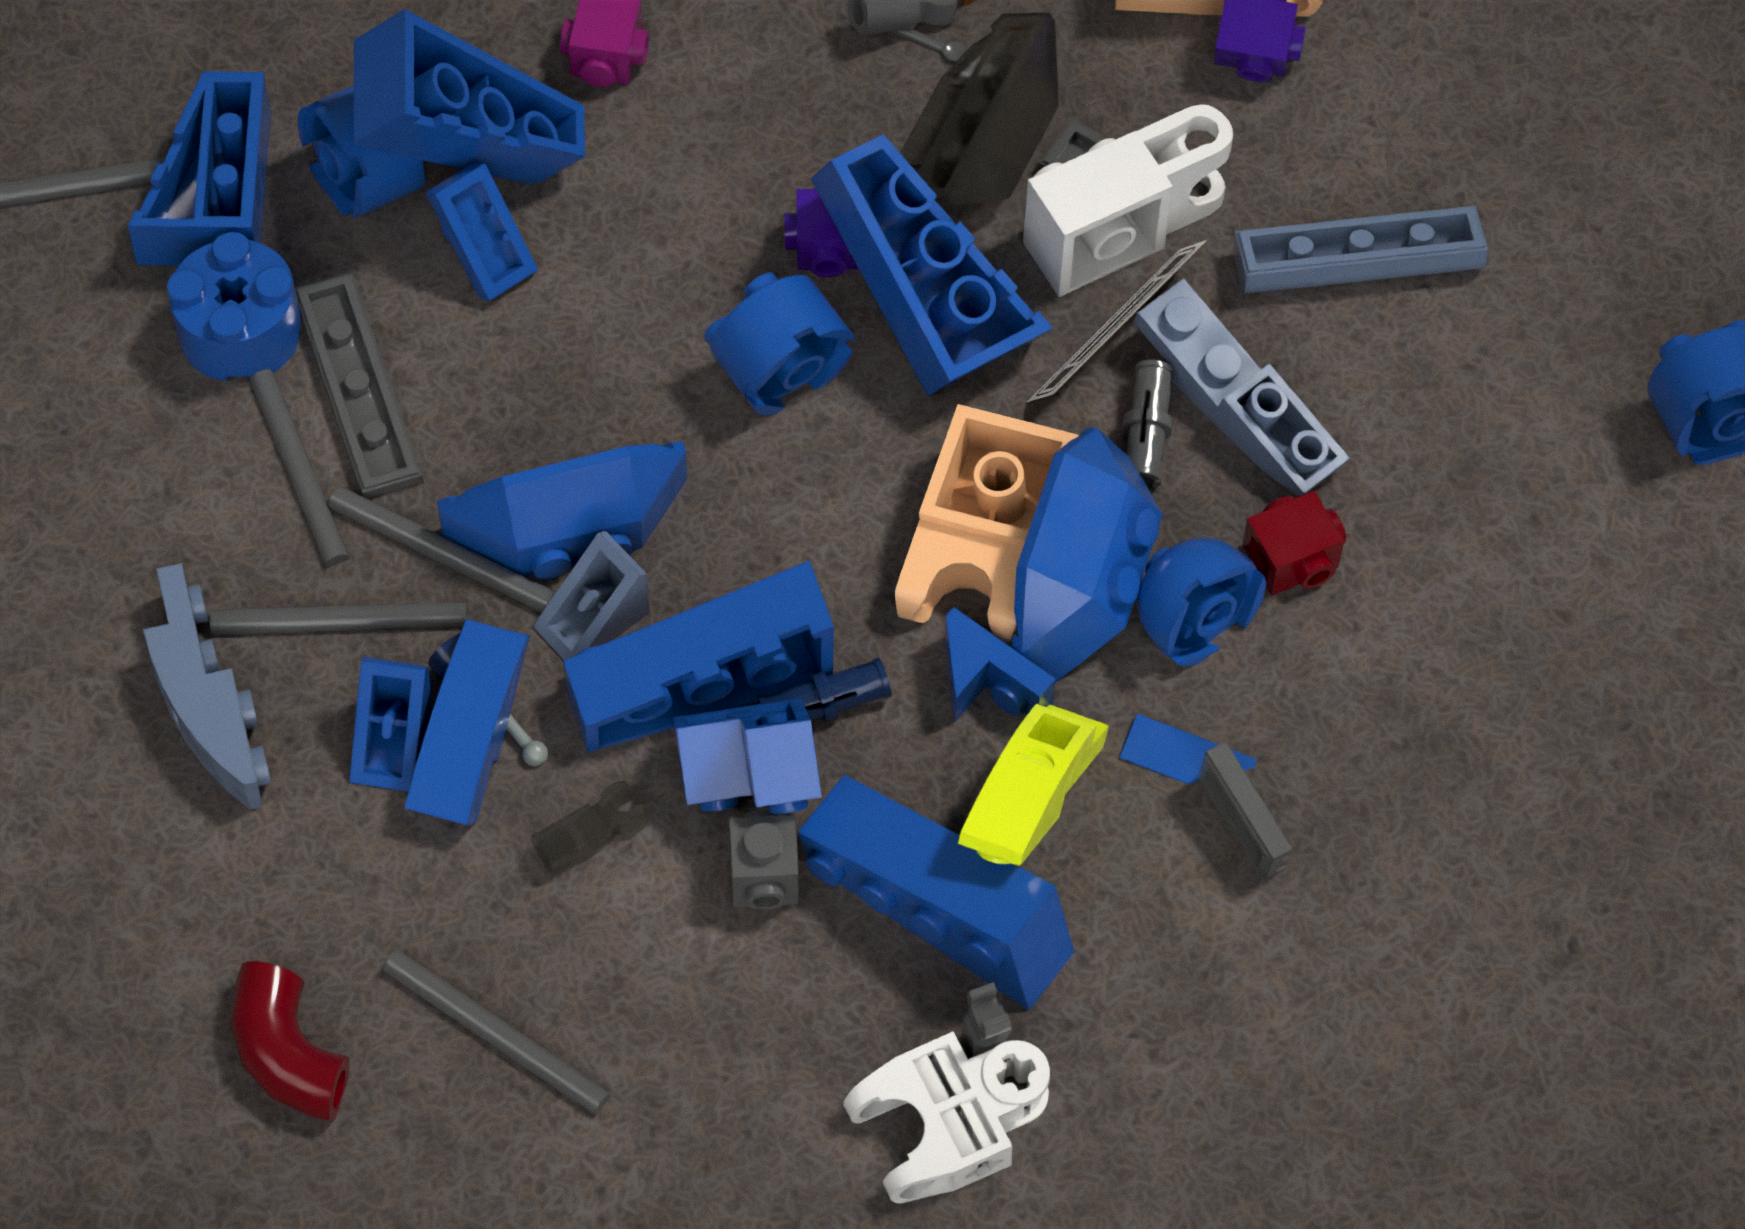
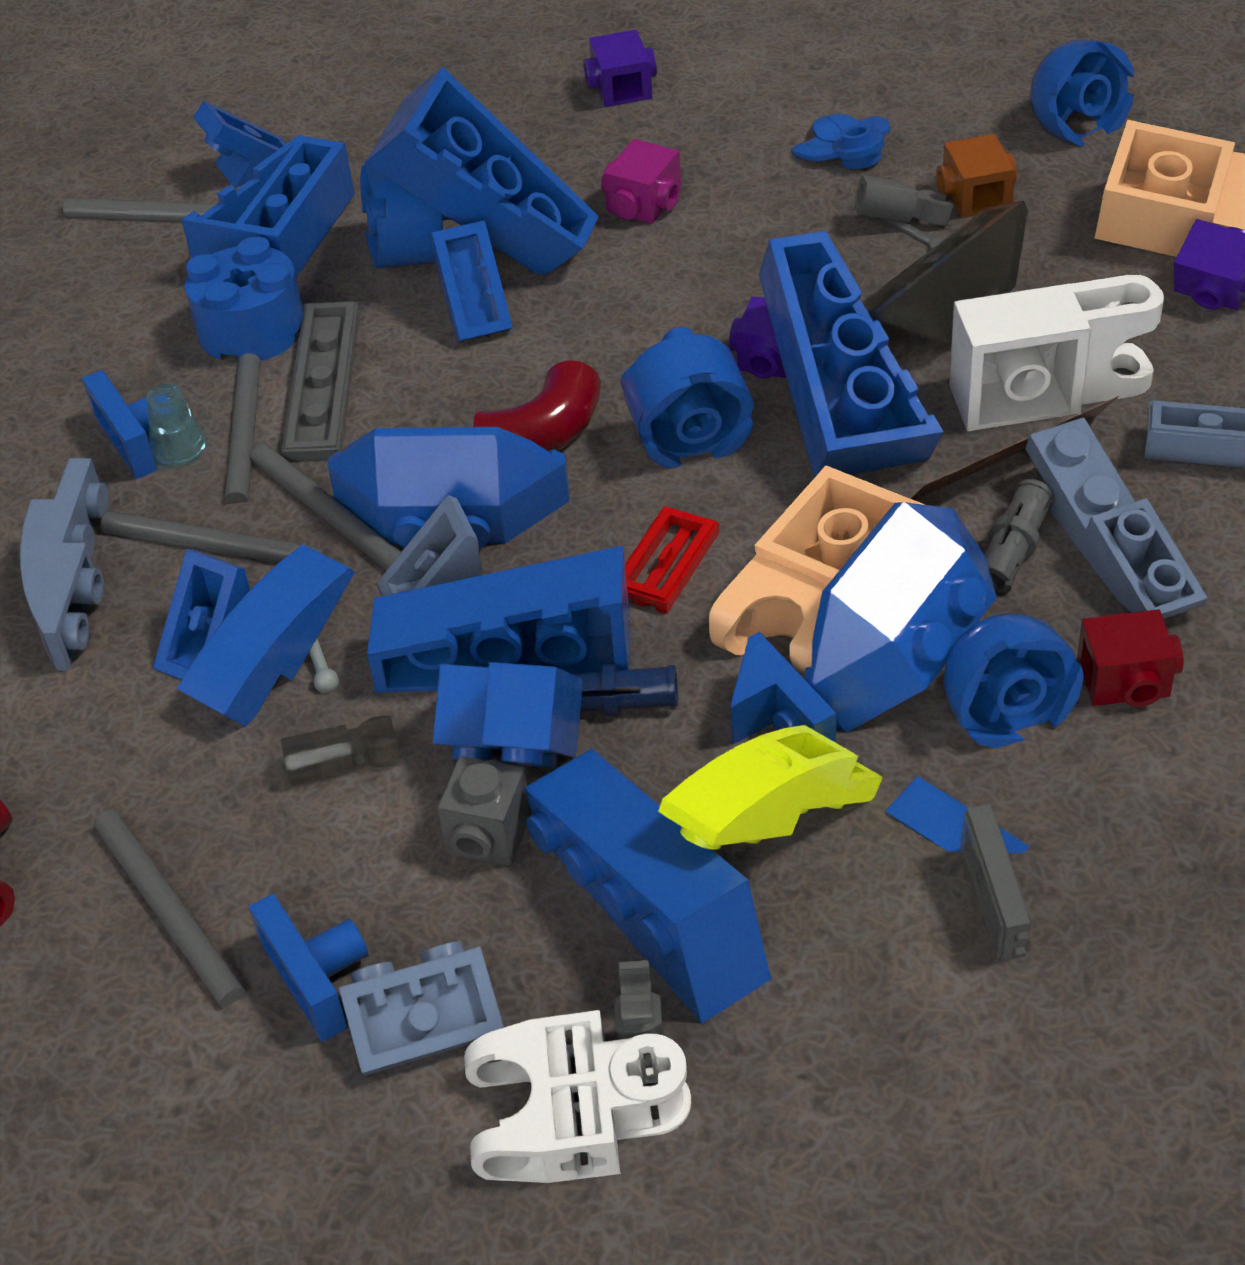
camera: 25 degrees right, 15 degrees down
(117, 77) = (237, 140): none -> blue slope
(178, 498) = (122, 423): none -> blue tile
(238, 498) = (172, 427): none -> clear light blue cone
(633, 395) = (554, 414): none -> dark red cylinder
(664, 1055) = (309, 963): none -> blue tile
(784, 1067) = (420, 1007): none -> sand blue bracket
(822, 480) = (668, 594): none -> red tile

